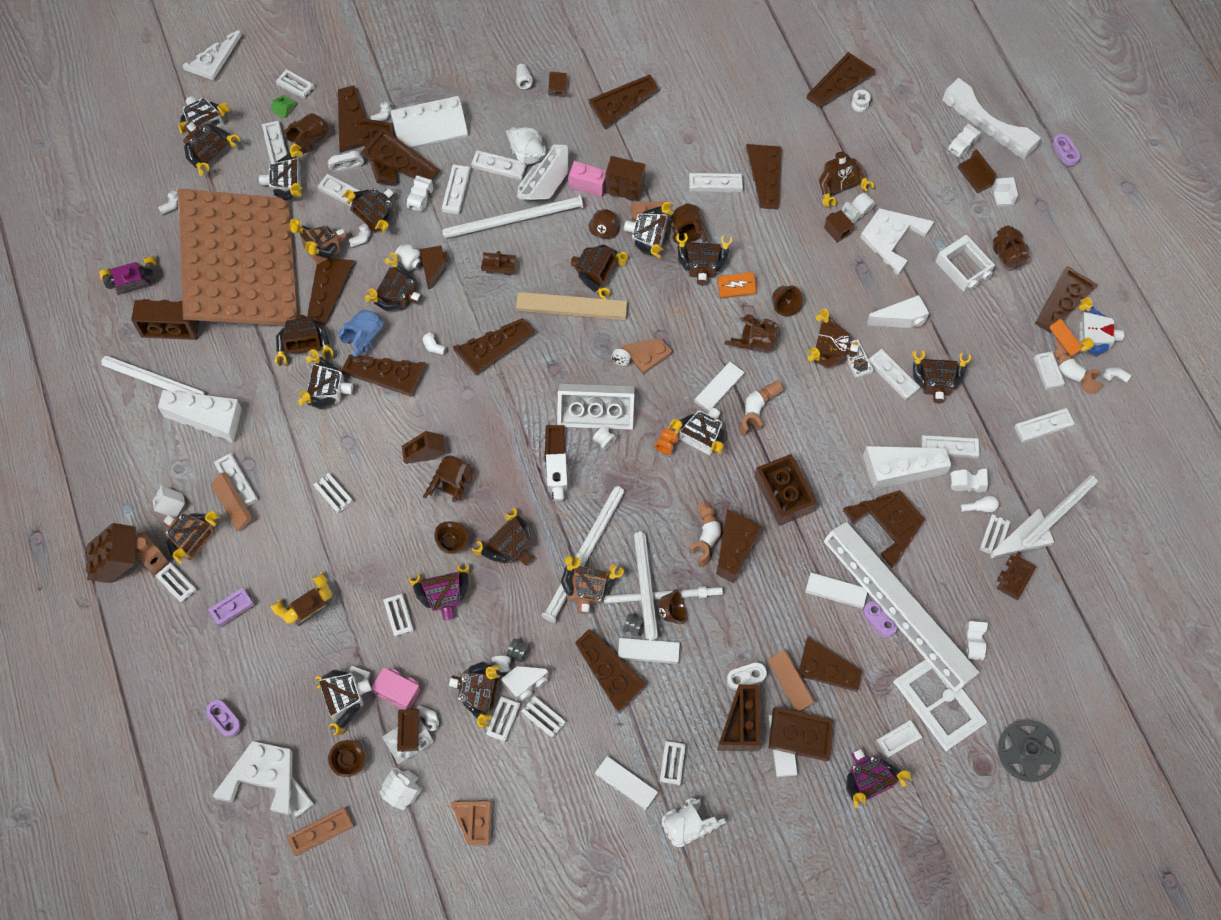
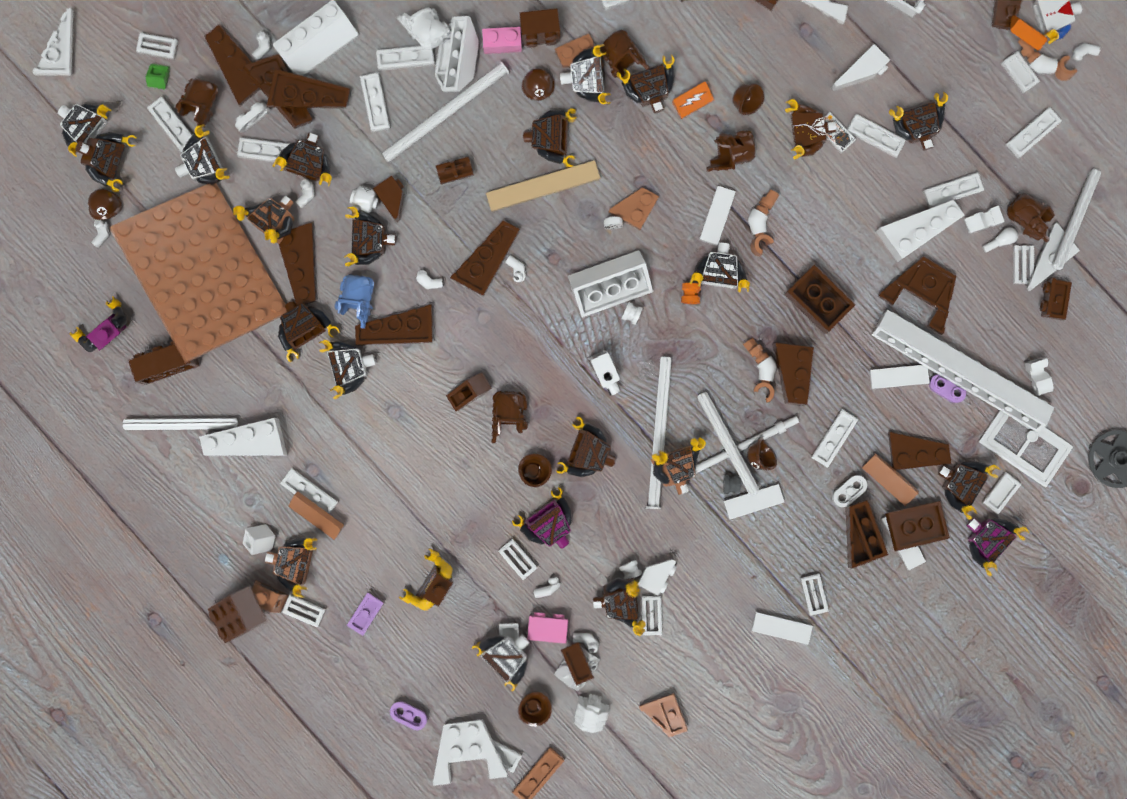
camera: 20 degrees left, 20 degrees up
(185, 179) = (104, 204): none -> reddish brown helmet
(324, 482) = (418, 475): white tile -> none
(418, 197) = (342, 125): white leg -> none
(421, 652) = (548, 590): none -> white arm
(518, 364) = (518, 269): none -> white arm
(518, 650) = (639, 549): dark grey wheel -> none
(530, 706) = (701, 604): white tile -> none
(554, 439) = (586, 336): reddish brown tile -> none
(613, 674) = (732, 537): reddish brown wing -> none
(685, 824) = (851, 647): white helmet -> none
(751, 623) = (834, 438): none -> white tile
(865, 712) = (965, 483): none -> torso
(1016, 491) = (1031, 216): none -> reddish brown helmet

